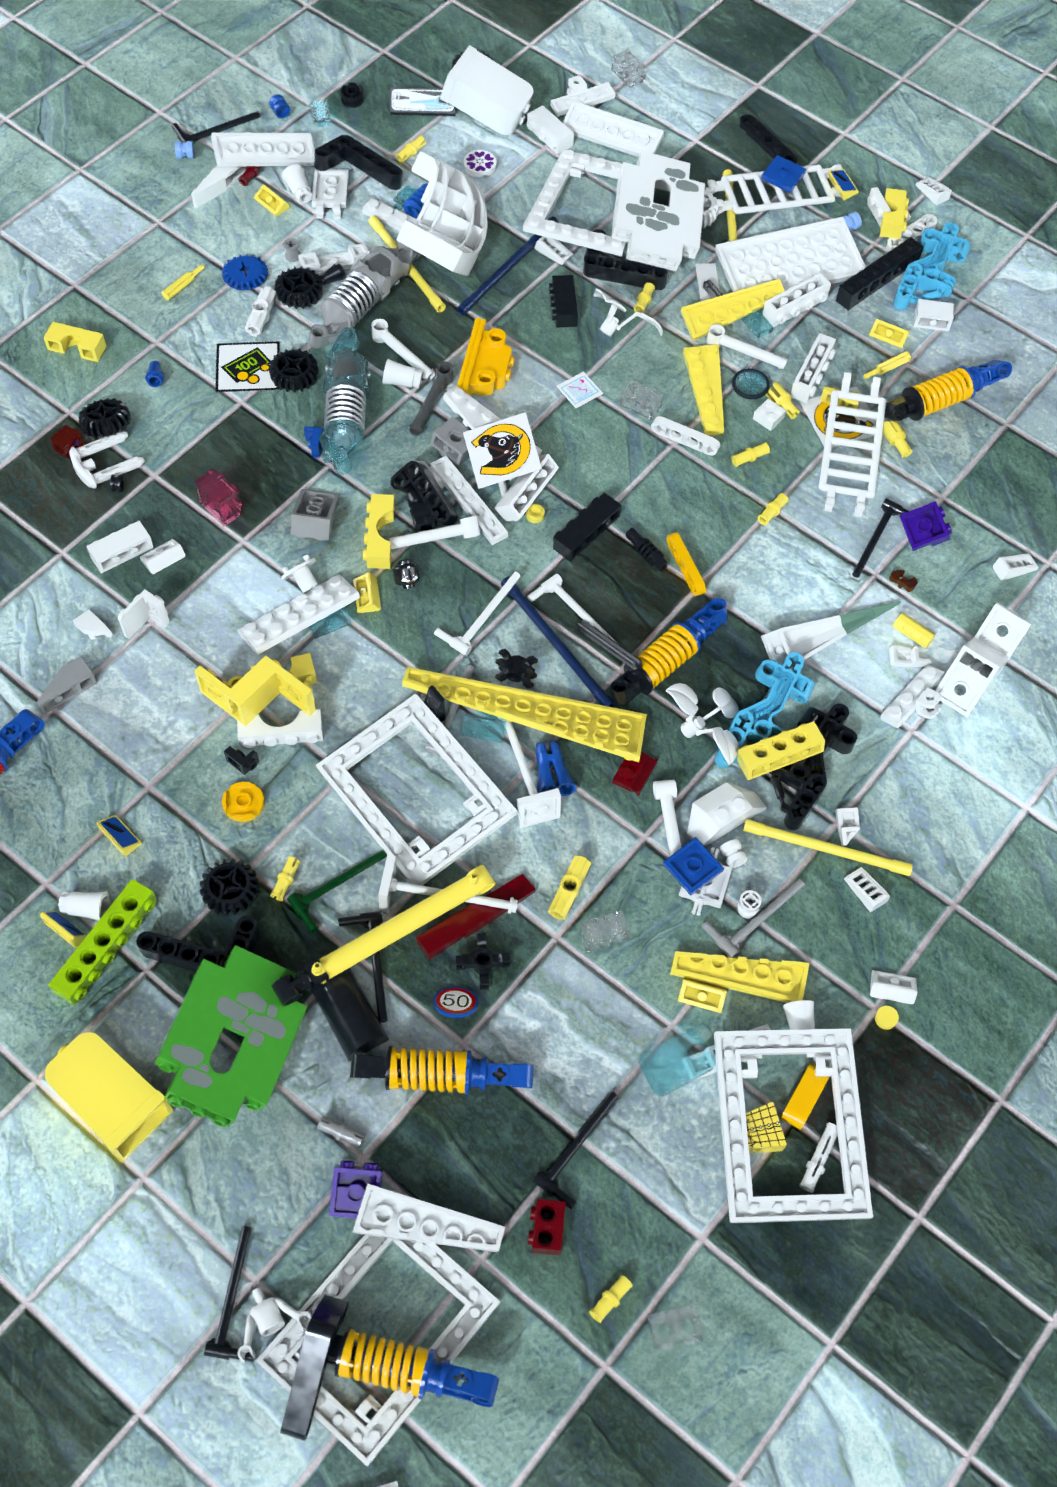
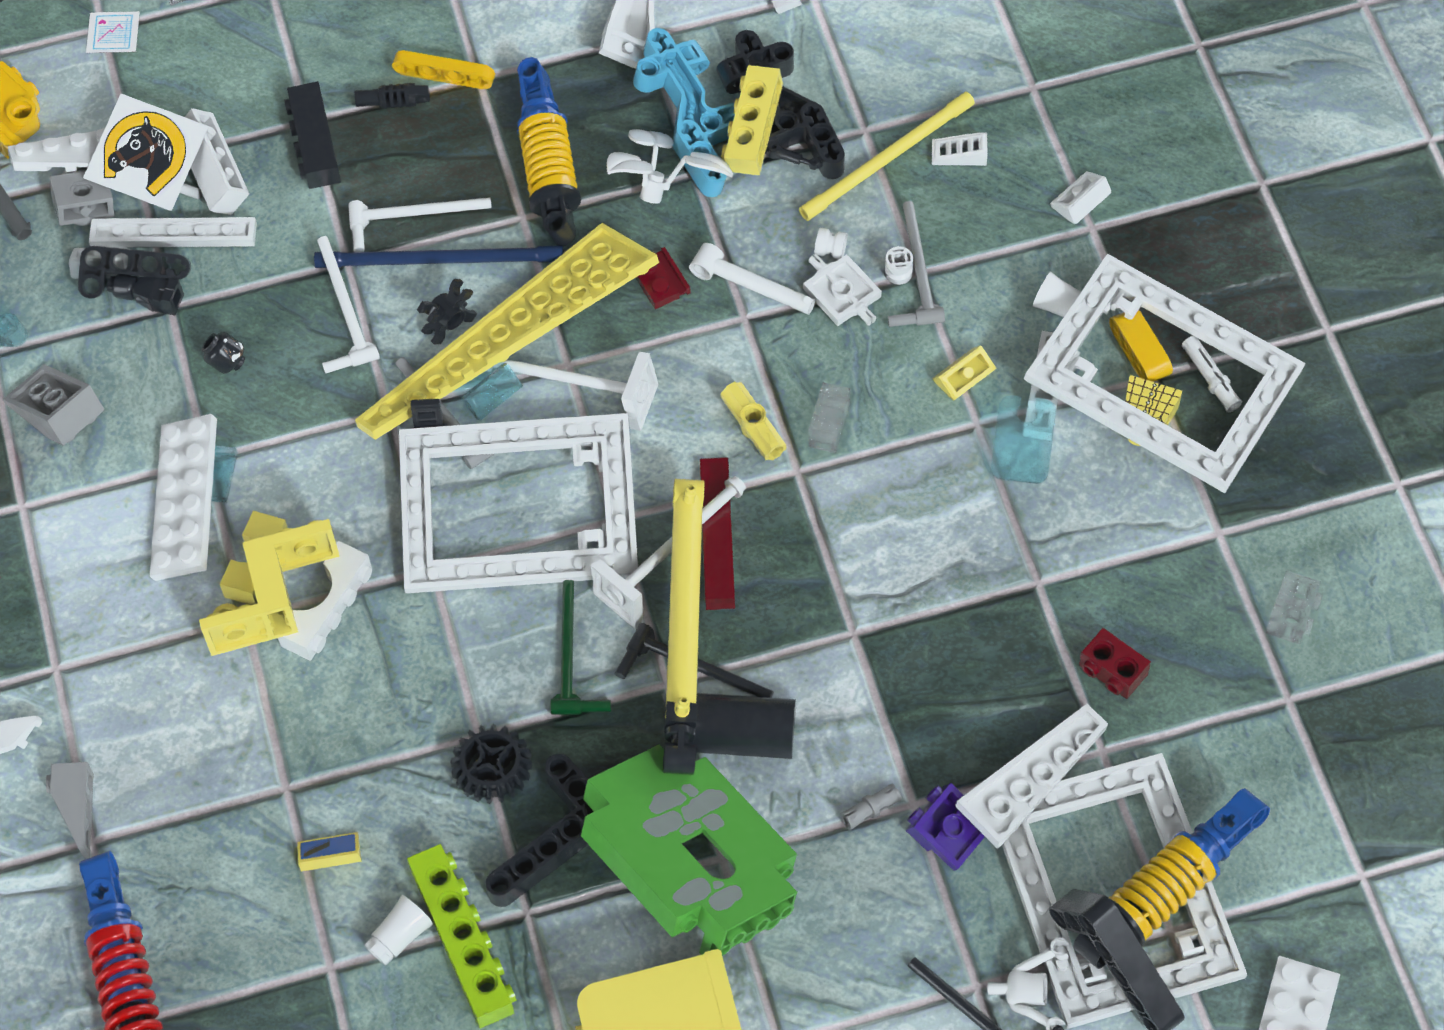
camera: 50 degrees left, 0 degrees up
(63, 927) = (408, 974): light yellow slope -> none
(144, 607) = (45, 649): white bracket -> none
(240, 761) = (333, 667): black bracket -> none
(243, 801) = (388, 694): yellow tile -> none
(285, 878) = (524, 700): light yellow pin -> none
(302, 574) = (133, 461): white piece -> none
(369, 593) = (199, 404): light yellow slope -> none
(378, 549) = (165, 365): light yellow arch -> none
(438, 1072) = (873, 668): piece -> none
(455, 1002) = (805, 608): piece -> none
(468, 528) = (214, 254): white piece -> none
(498, 960) = (779, 545): black pin -> none
(535, 513) = (251, 176): light yellow tile -> none
(547, 1180) = (1062, 637): black bar -> none
(555, 759) = (599, 355): blue piece -> none
(609, 645) = (493, 201): black axle -> none
(610, 1299) = (1226, 650): light yellow pin -> none
(693, 866) = (821, 286): blue plate -> none
(722, 812) = (773, 227): white wedge -> none
(764, 978) = (994, 299): light yellow wing -> none
(847, 823) = (875, 121): white slope -> none
(886, 1017) = (1109, 223): light yellow tile -> none

